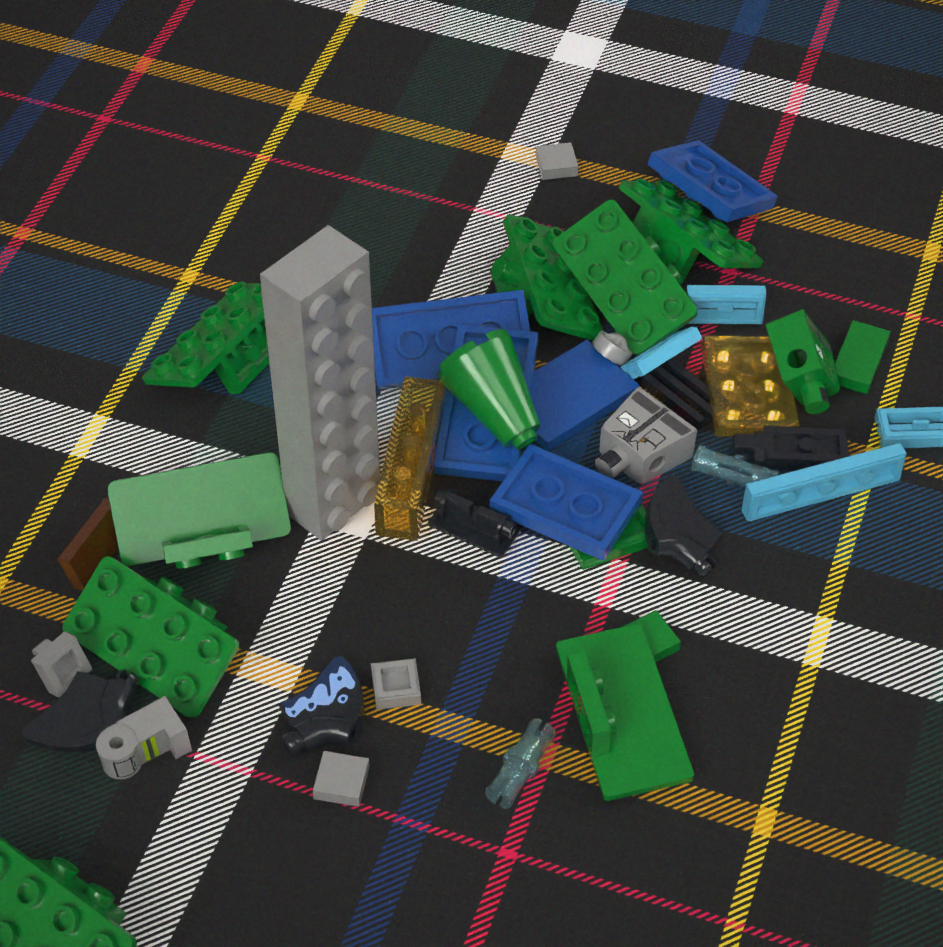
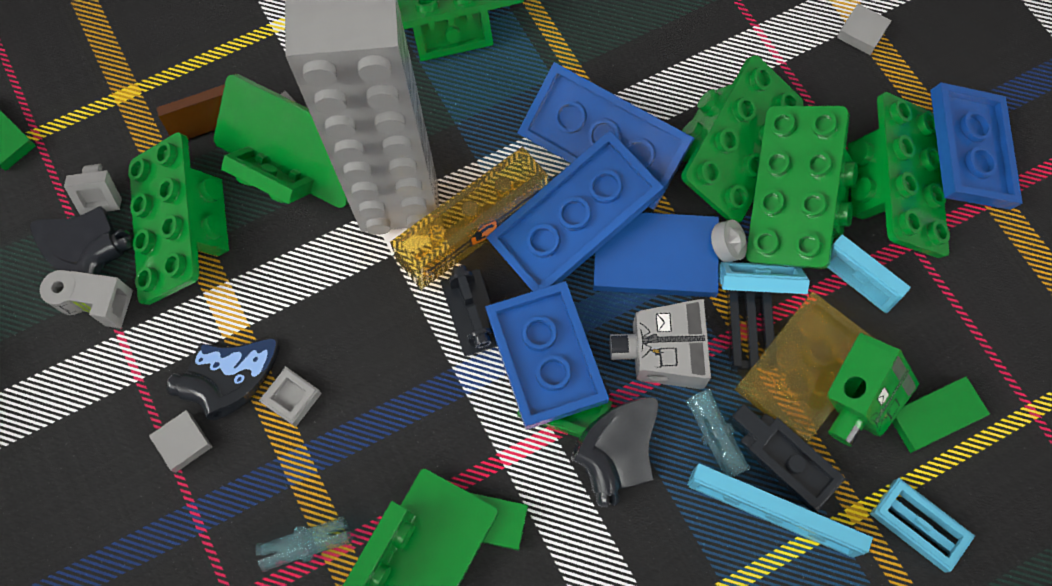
camera: 45 degrees right, 20 degrees up
(493, 388) = (569, 215): green cone -> none

